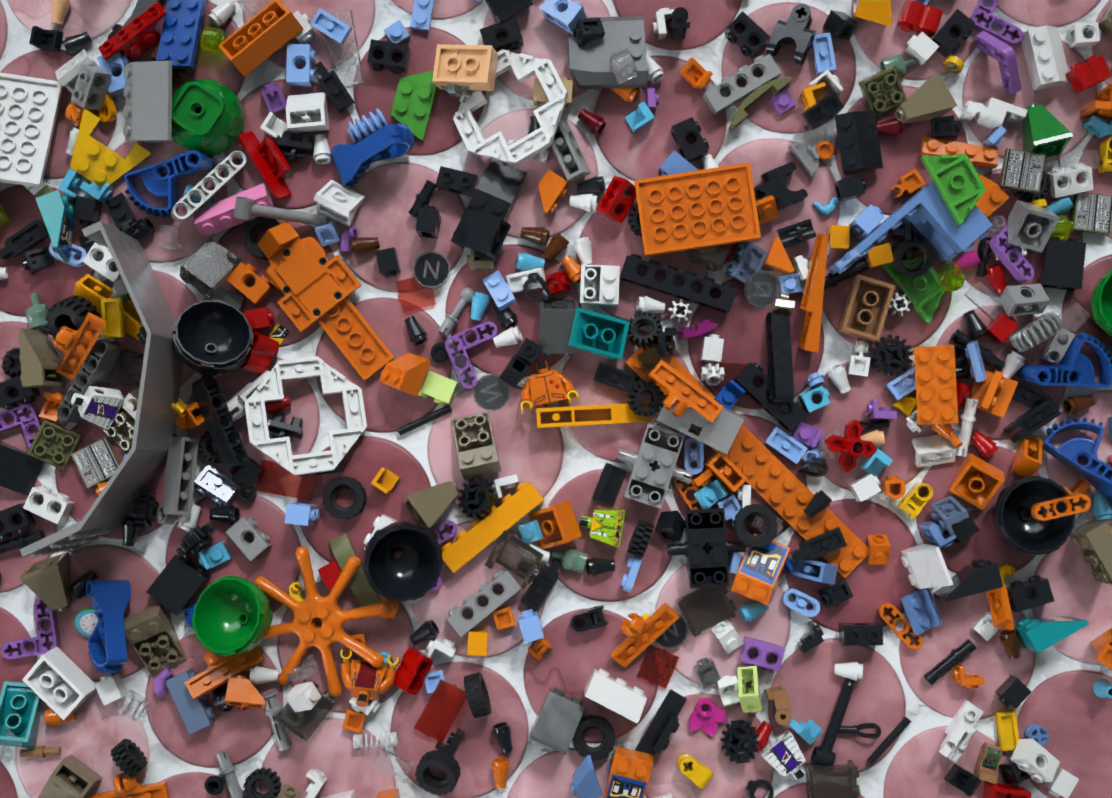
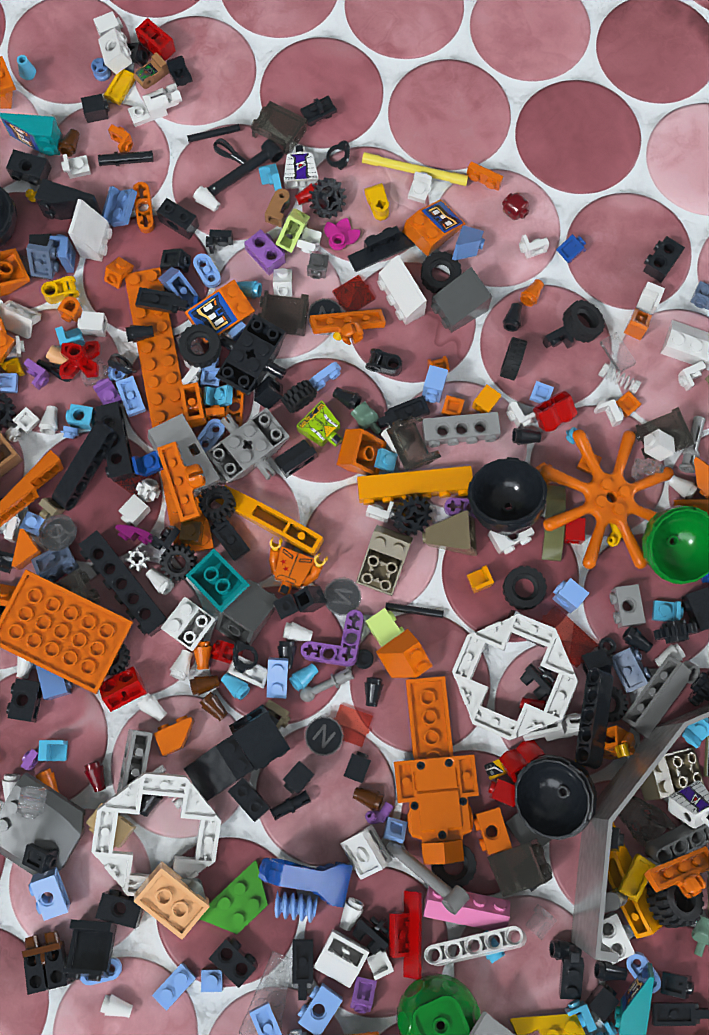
camera: 150 degrees left, 10 degrees down
(153, 179) = (514, 974): blue arm -> none
(366, 680) = (599, 427): orange torso -> none
(441, 710) = (550, 367): clear red piece -> none
(593, 185) = (136, 717): black cone -> none
(1000, 608) = (58, 166): orange panel -> none

